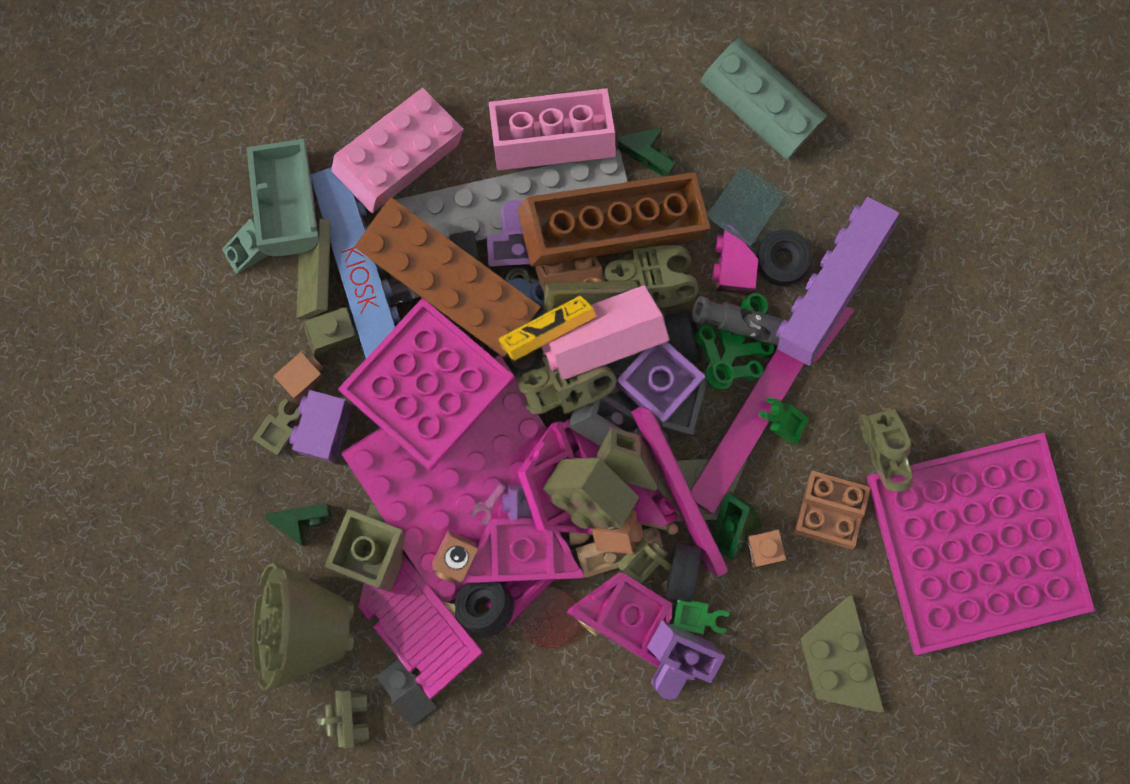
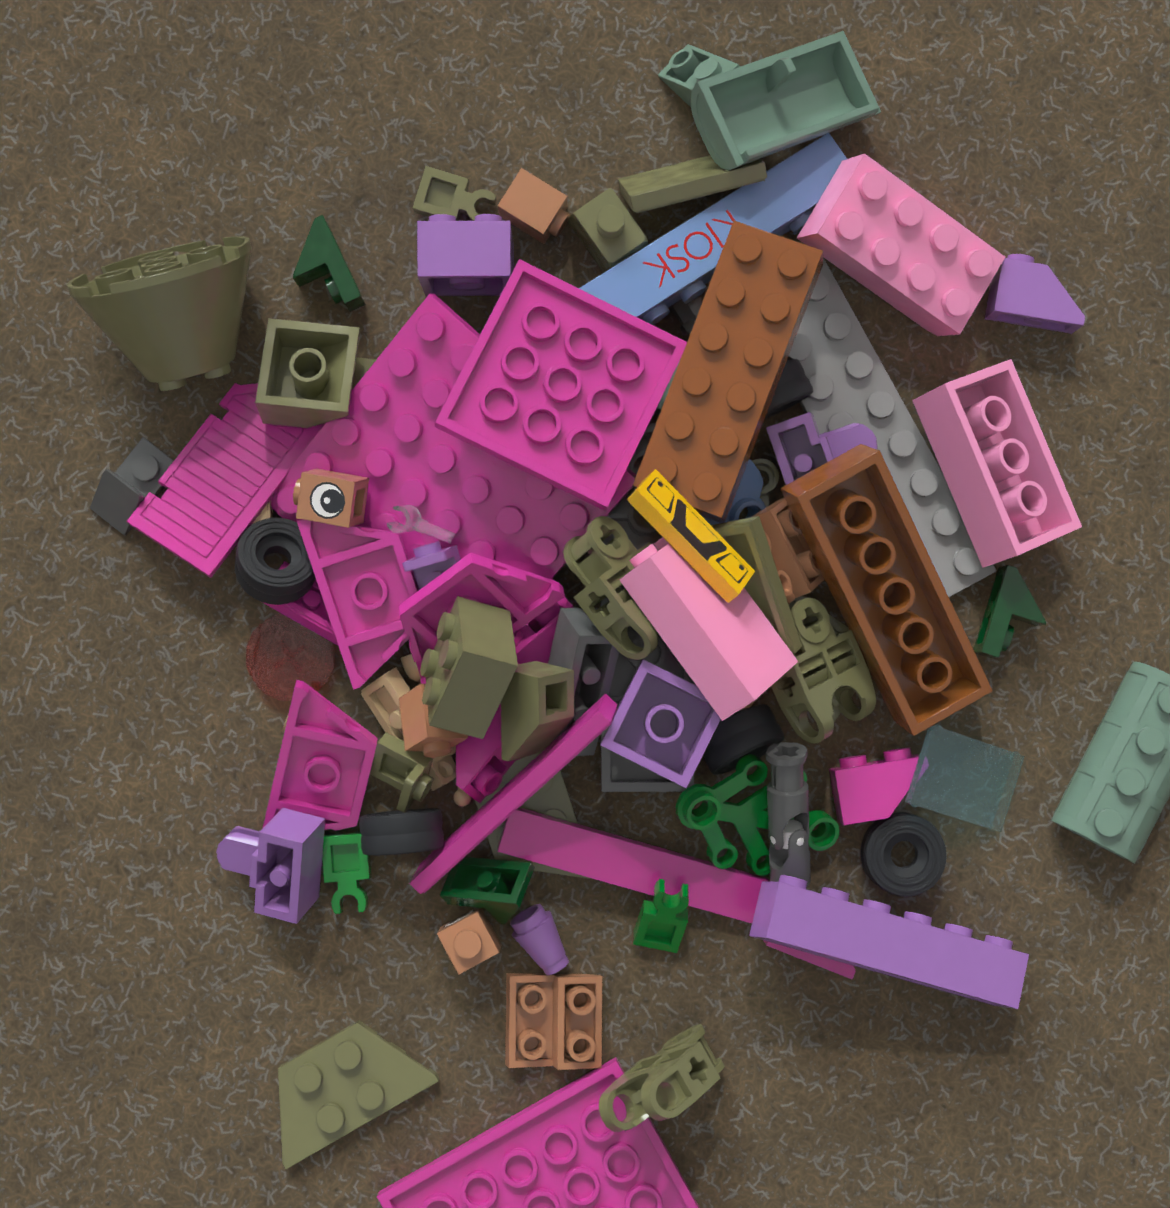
camera: 70 degrees right, 5 degrees up
(347, 732) = (54, 422): olive hips -> none
(451, 78) = (1031, 297): none -> medium lavender slope
(776, 503) = (539, 938): none -> medium lavender cone

